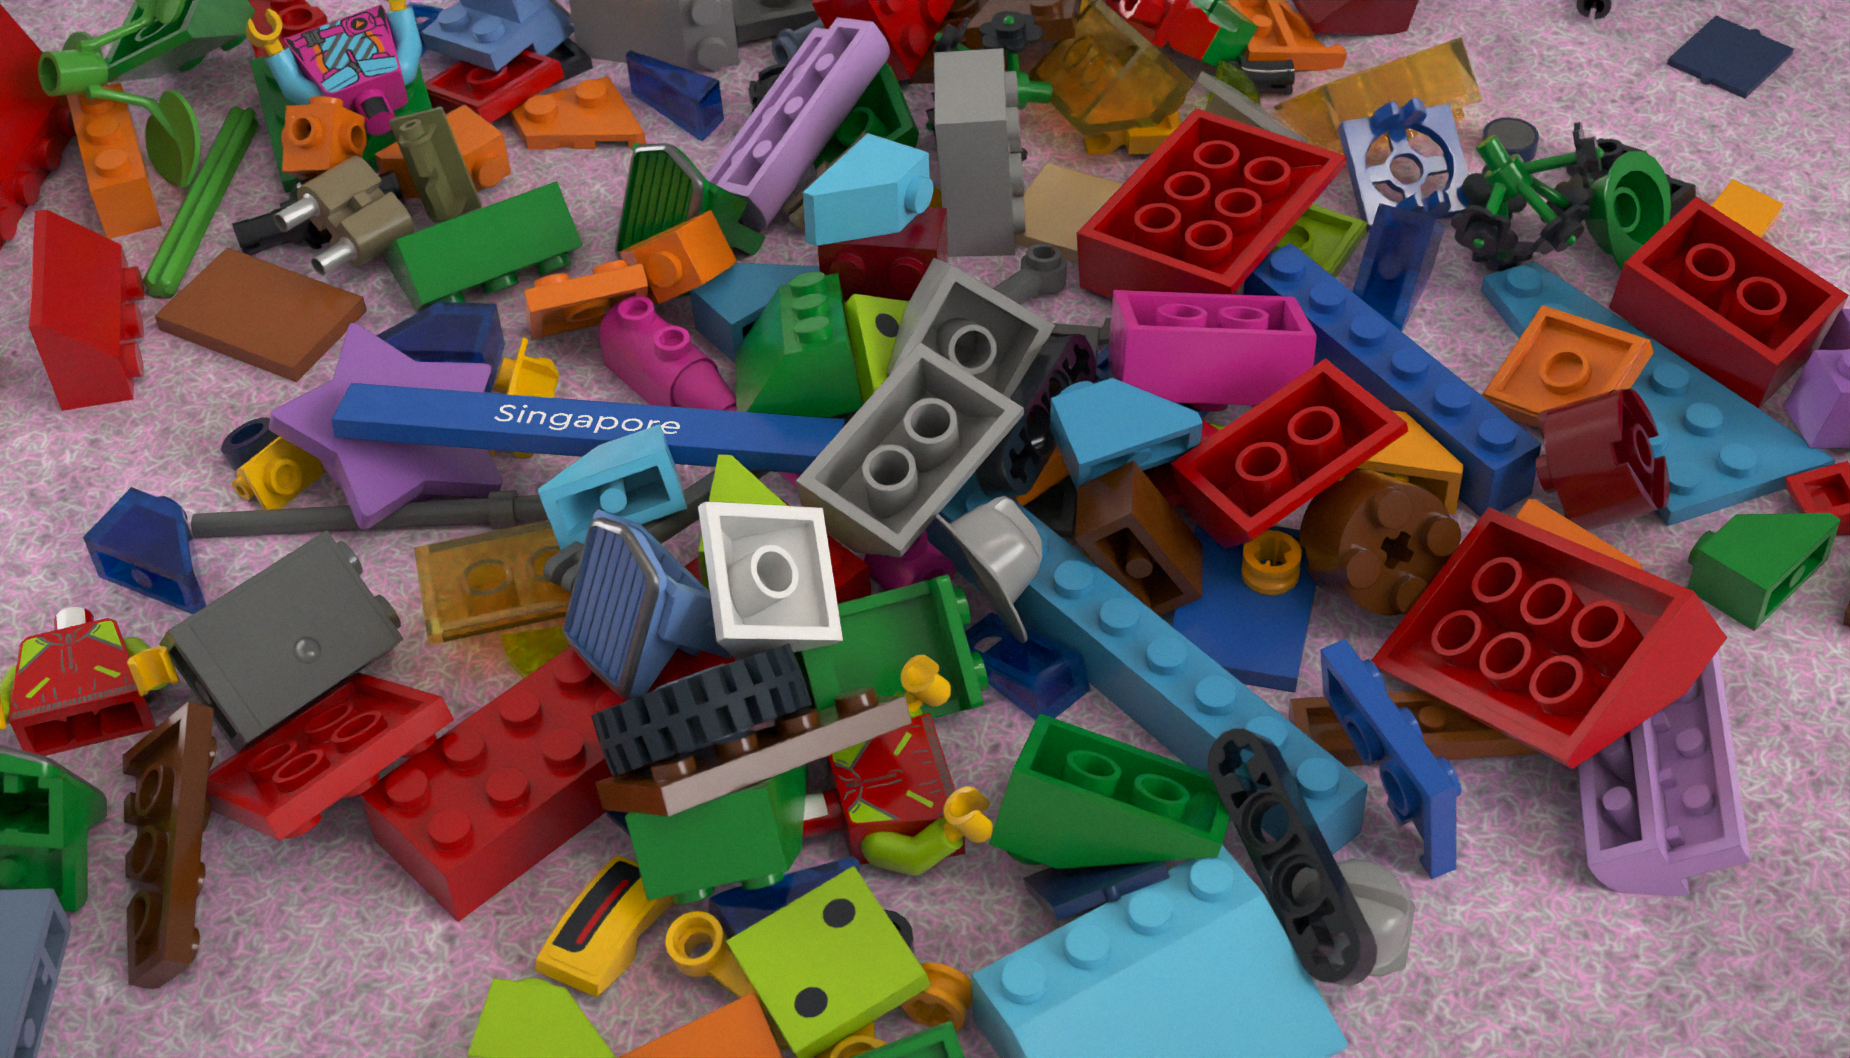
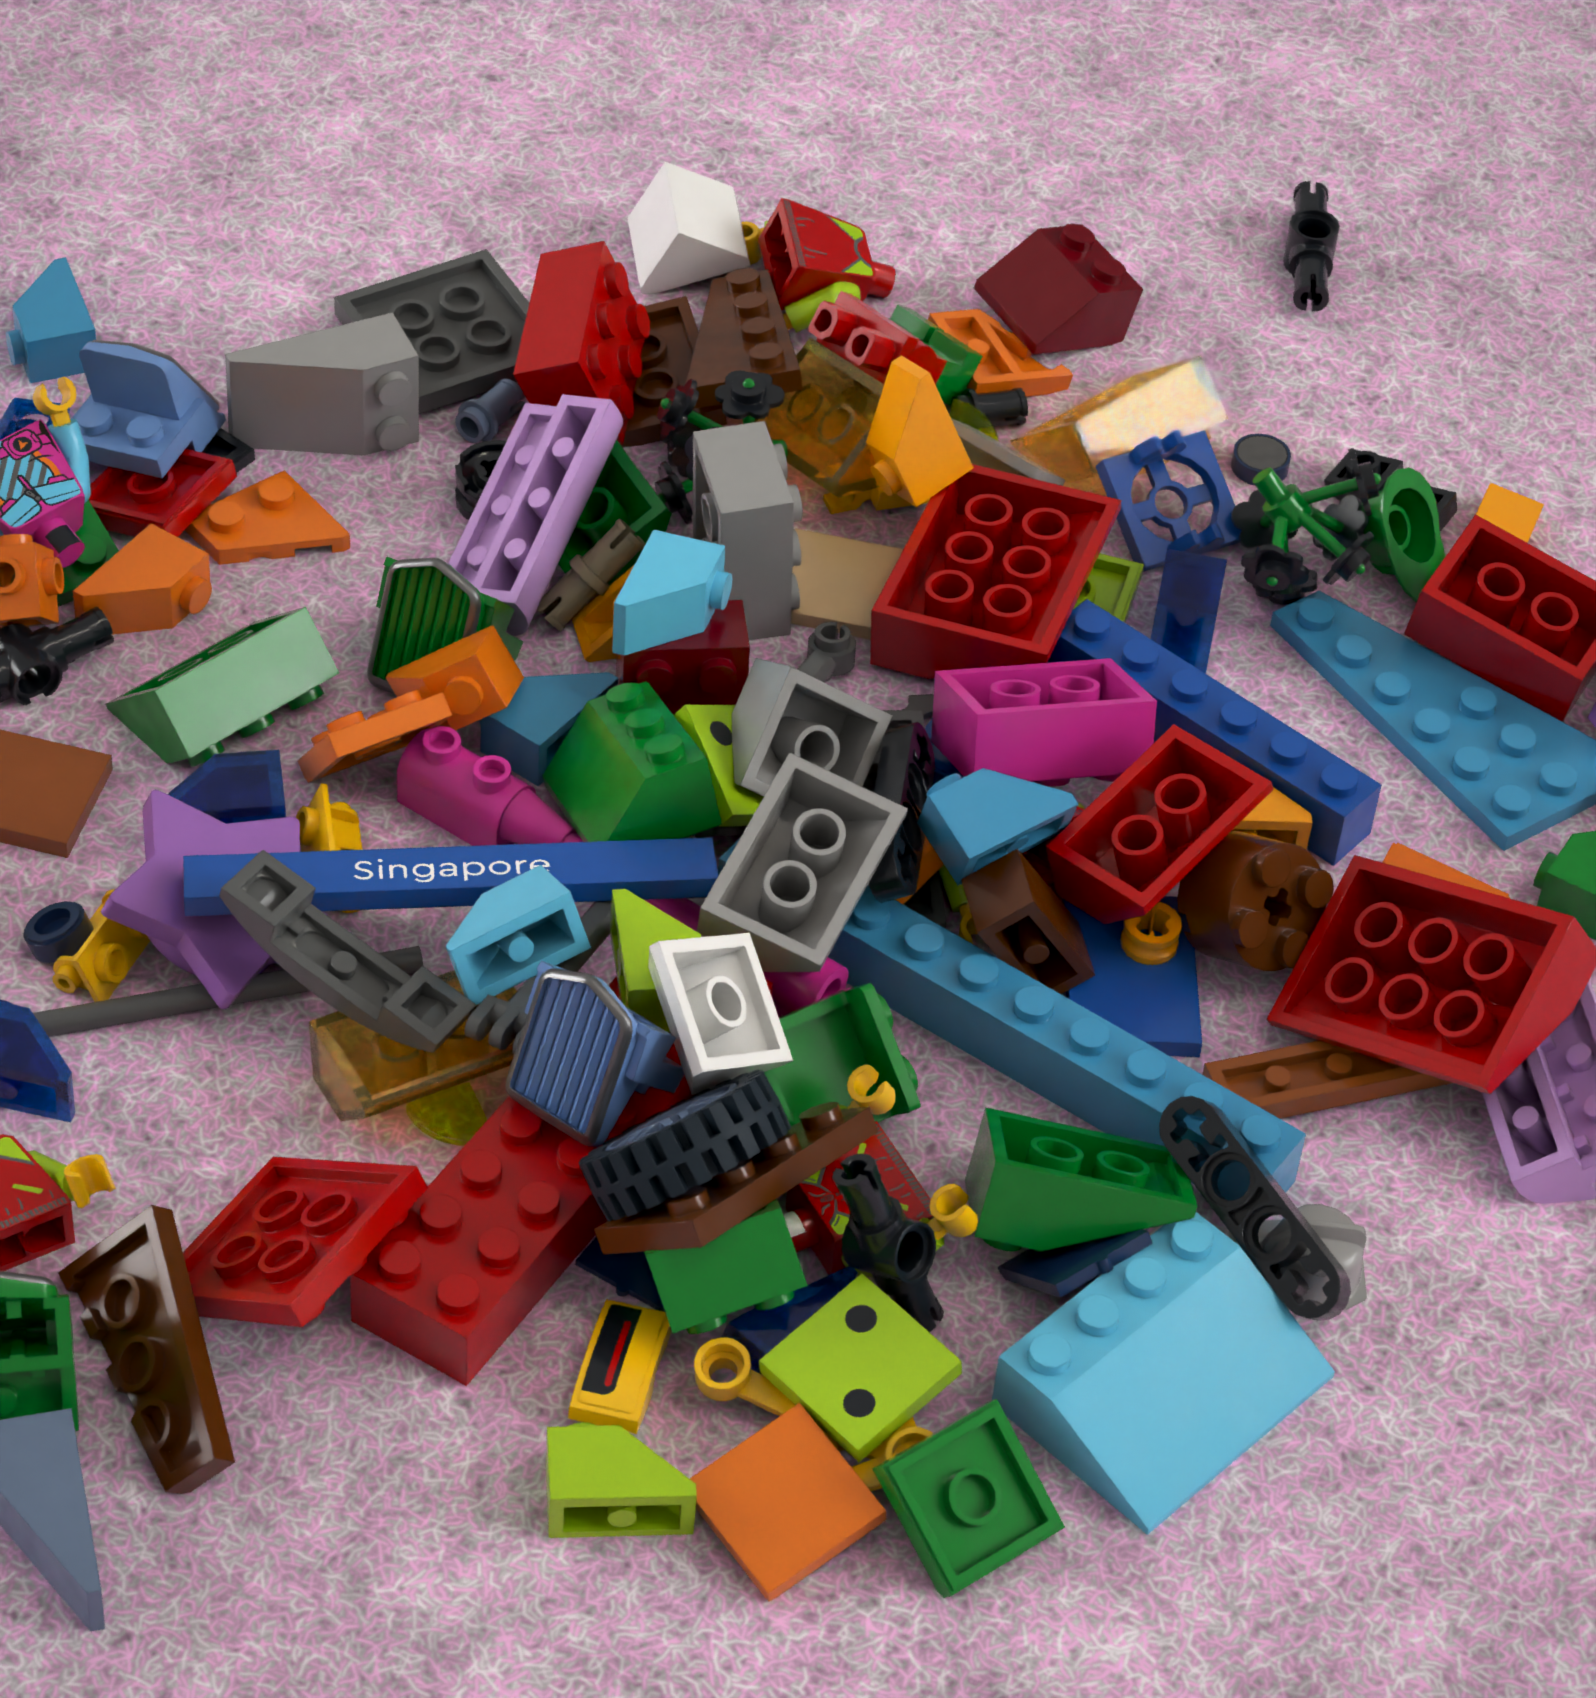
camera: 20 degrees left, 0 degrees up
(283, 639) = (204, 1130): dark grey piece -> none
(352, 210) = (78, 661): dark tan piece -> none
(435, 164) = (150, 600): olive hinge -> none
(448, 492) = (336, 964): none -> dark grey slope
(677, 93) = (372, 485): clear blue slope -> none
(888, 839) = (886, 1241): none -> black pin
(944, 1000) = (967, 1390): light orange bush -> none
(1002, 554) = (907, 963): light grey piece -> none
(1032, 674) = (951, 1067): clear blue slope -> none
(1156, 82) = (914, 437): none -> light orange slope
(1416, 782) = (1341, 1117): blue wing -> none
(1562, 362) = (1383, 708): orange tile -> none
(1602, 459) = (1440, 792): dark red brick -> none
(1730, 56) = (1455, 343): dark blue piece -> none

